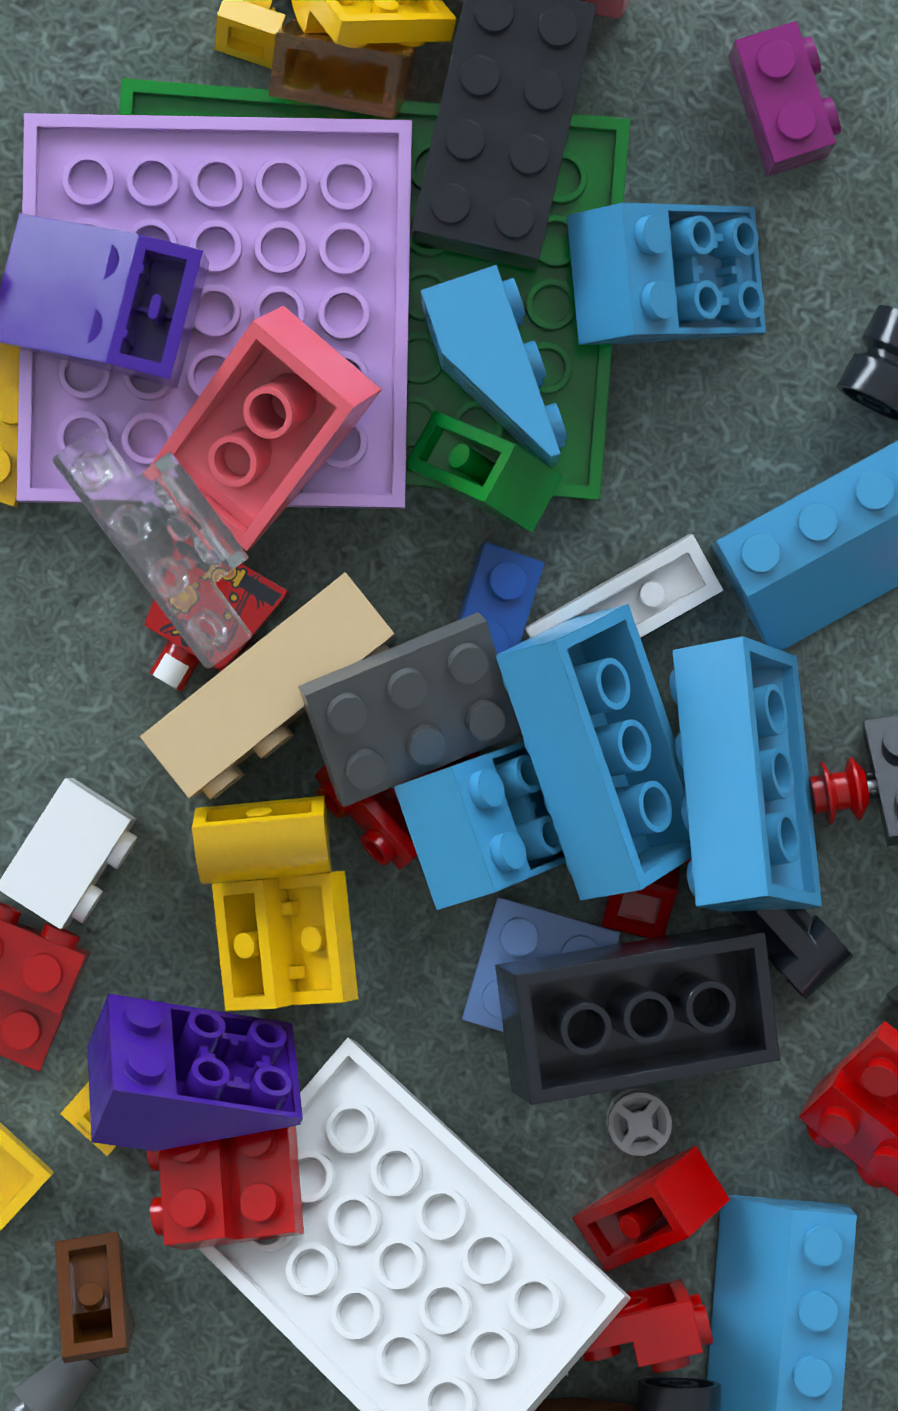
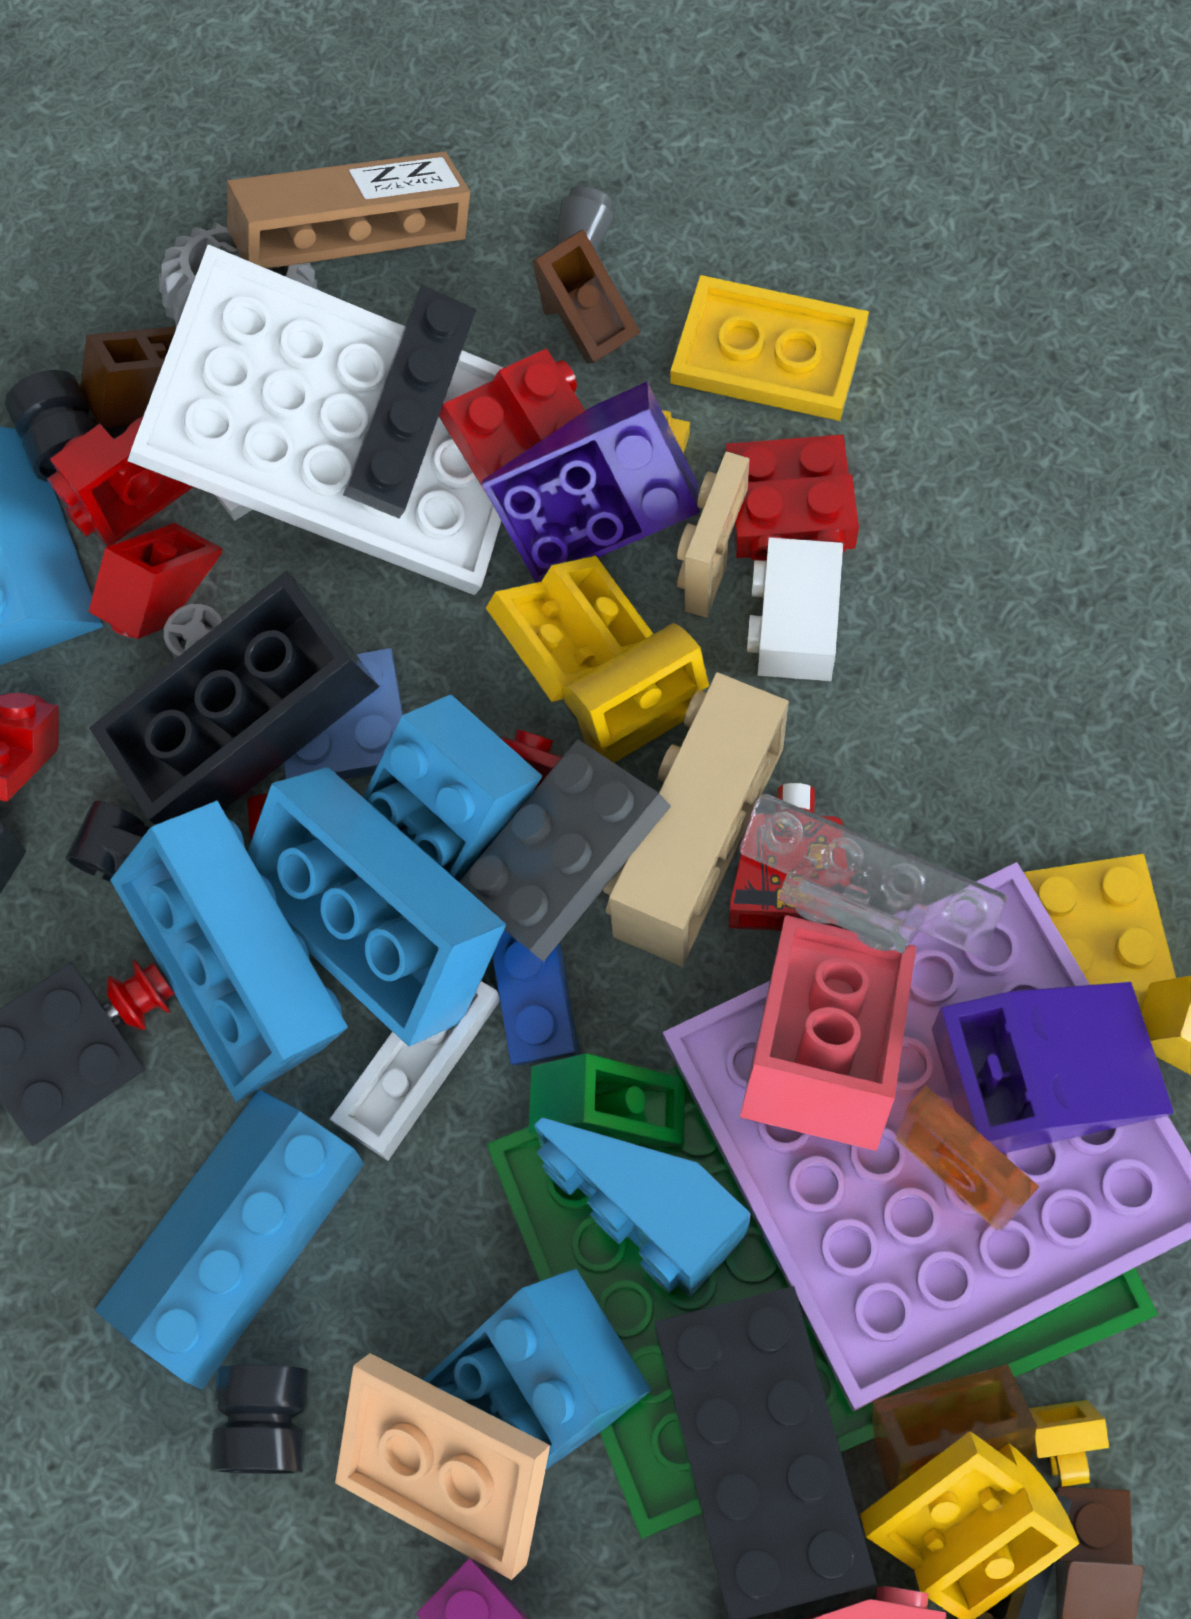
camera: 160 degrees right, 20 degrees down
(126, 947) = (706, 545): none -> tan plate
(220, 249) = (964, 1159): none -> clear orange tile
(324, 1251) = (410, 402): none -> black plate
(763, 246) = (441, 1465): none -> light nougat plate

